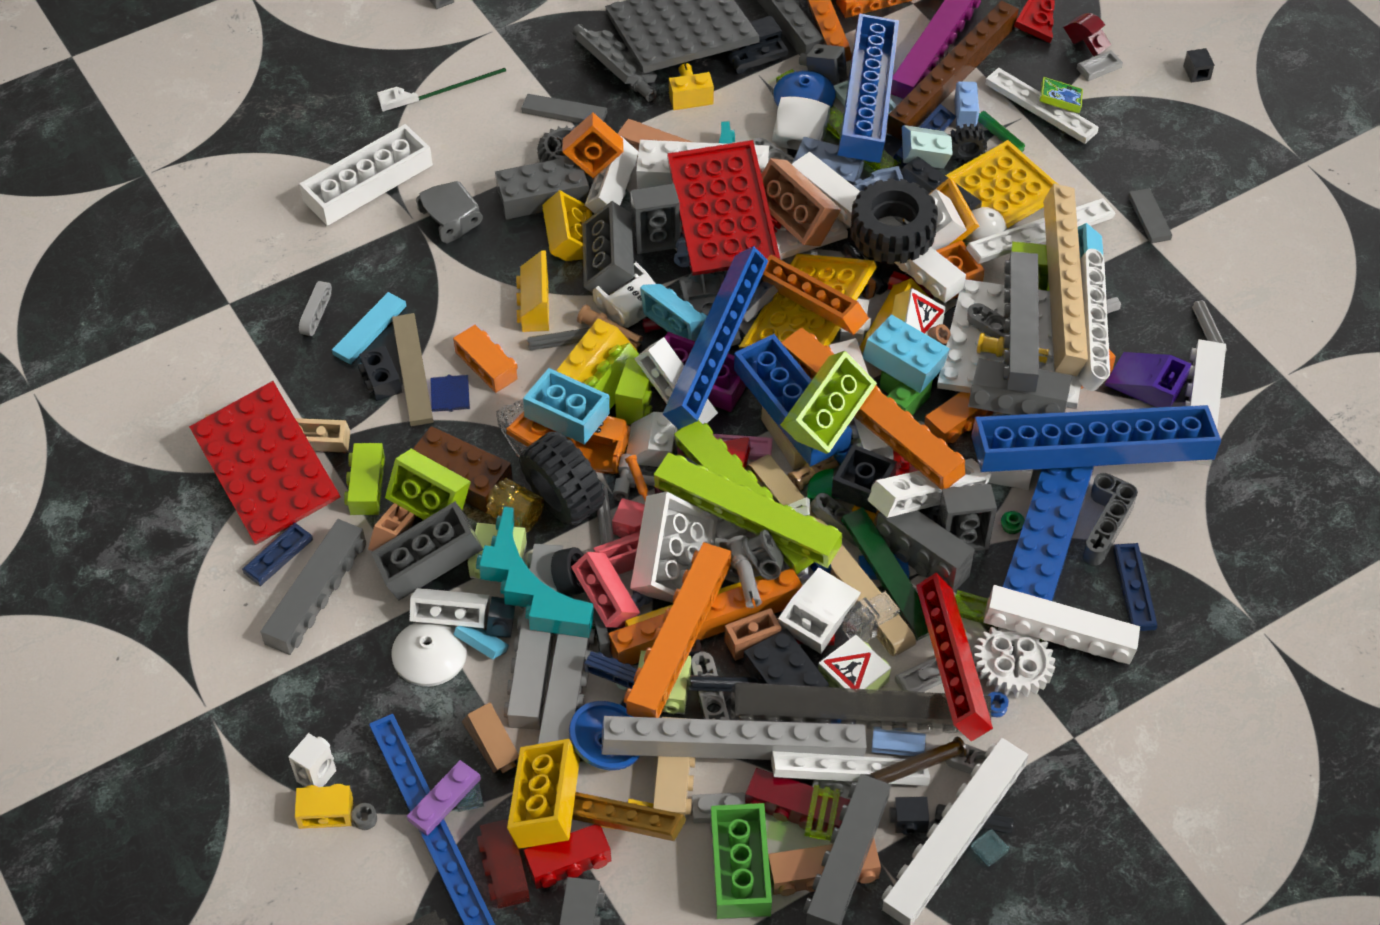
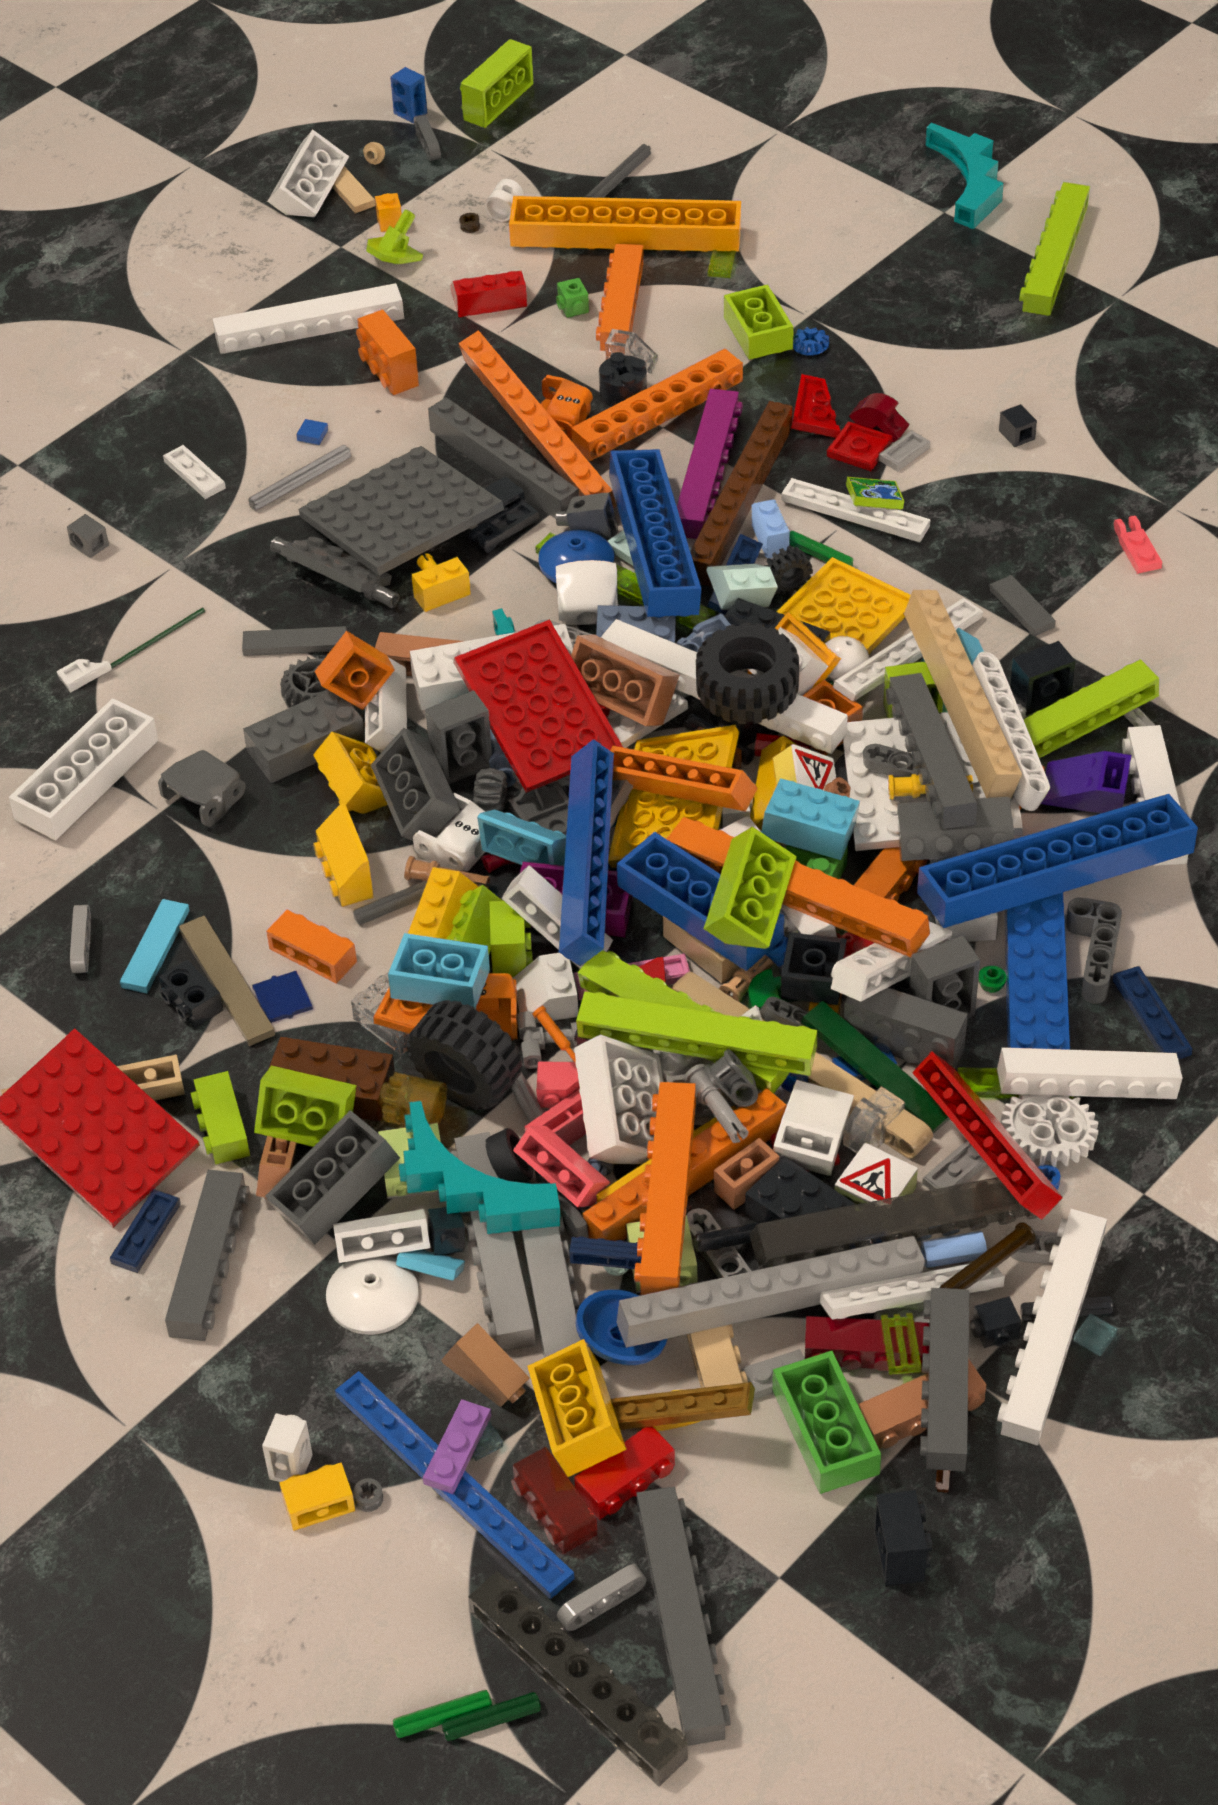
camera: 15 degrees left, 5 degrees down
(666, 267) = (490, 789): none -> dark grey gear
(1064, 53) = (859, 446): none -> red tile
(1142, 280) = (1042, 677): none -> black brick
(1170, 316) = (1092, 707): none -> lime brick
(1263, 188) = (1137, 546): none -> coral hinge

